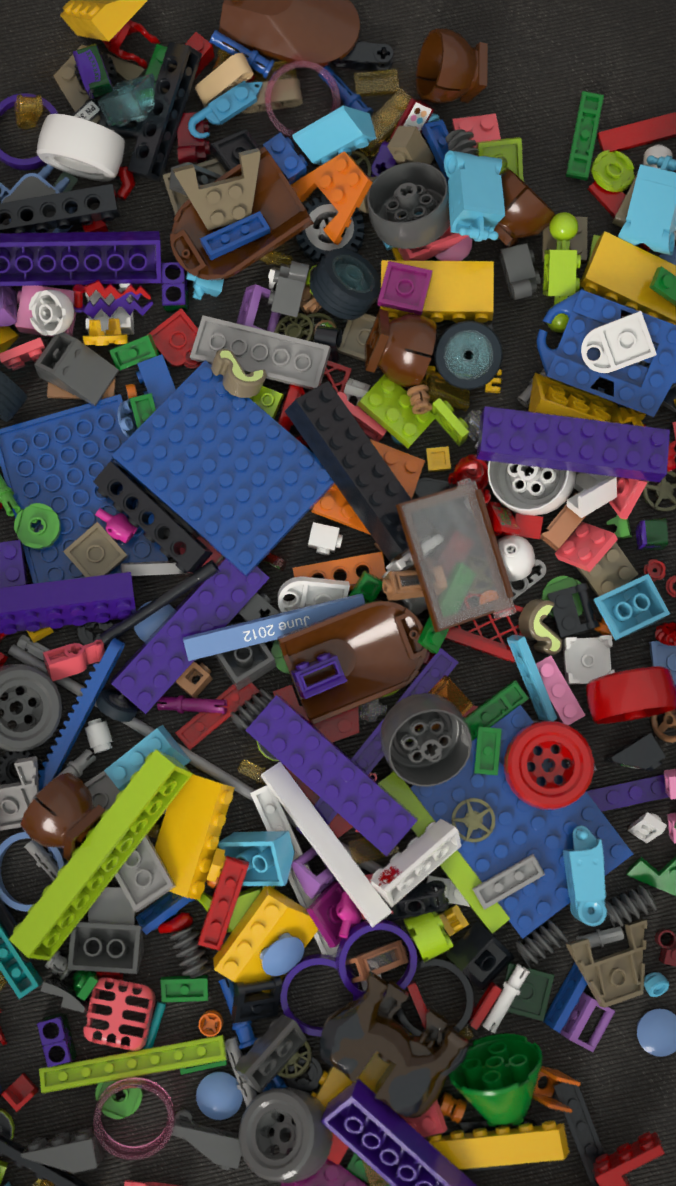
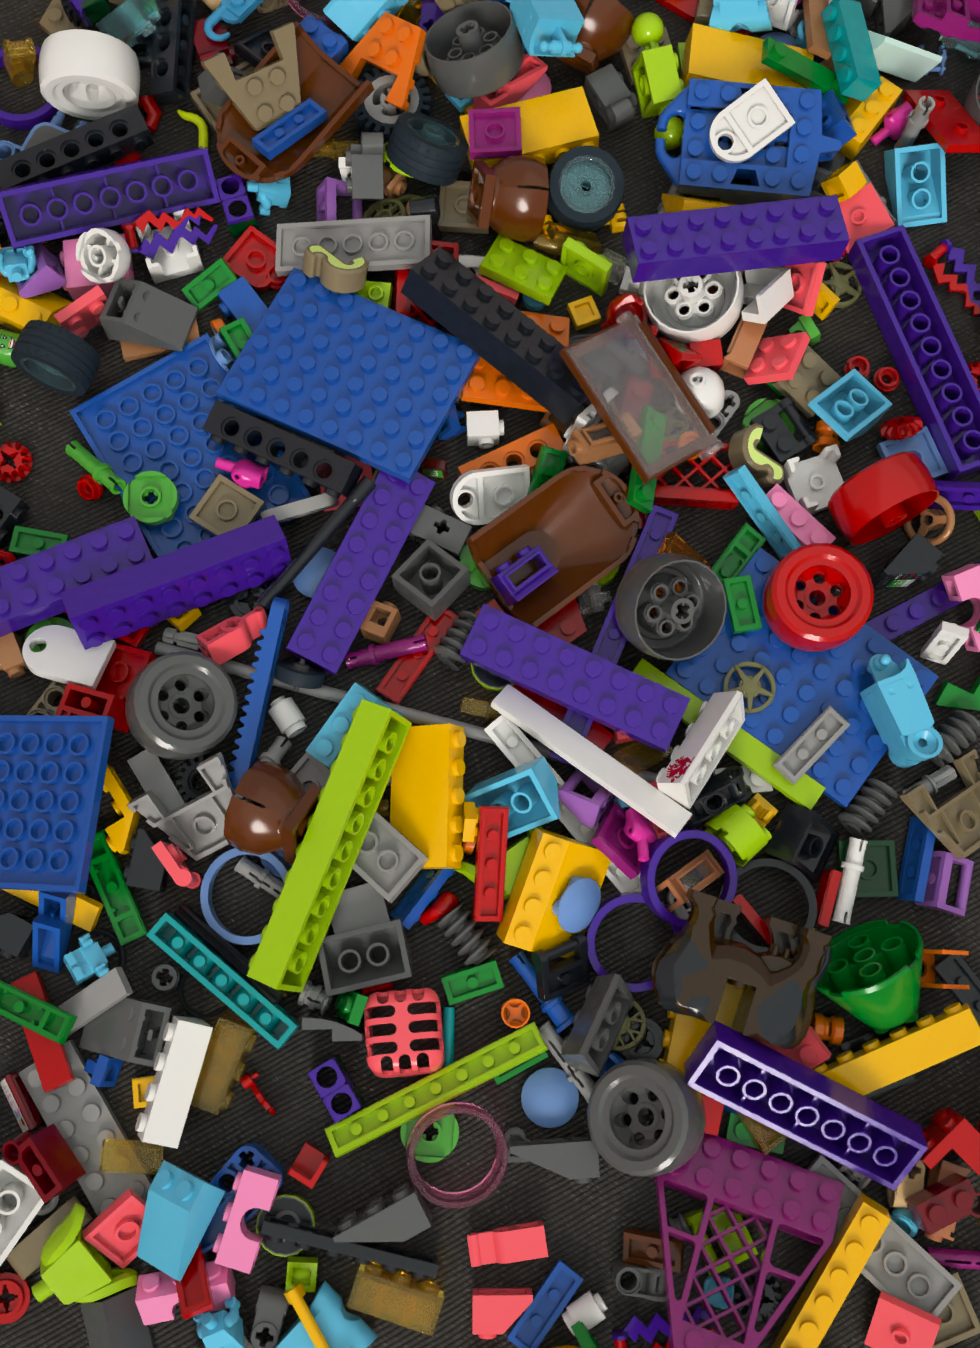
camera: 25 degrees left, 5 degrees down
(99, 338) = (175, 273): yellow plate -> none
(164, 211) = (203, 136): none -> neon yellow animal
(264, 628) = (442, 540): medium blue tile -> none
(299, 529) = (451, 425): none -> blue tile
(419, 399) = (546, 247): medium nougat bush -> none
(645, 504) = (825, 302): none -> yellow plate
(652, 534) = (844, 327): dark green piece -> none

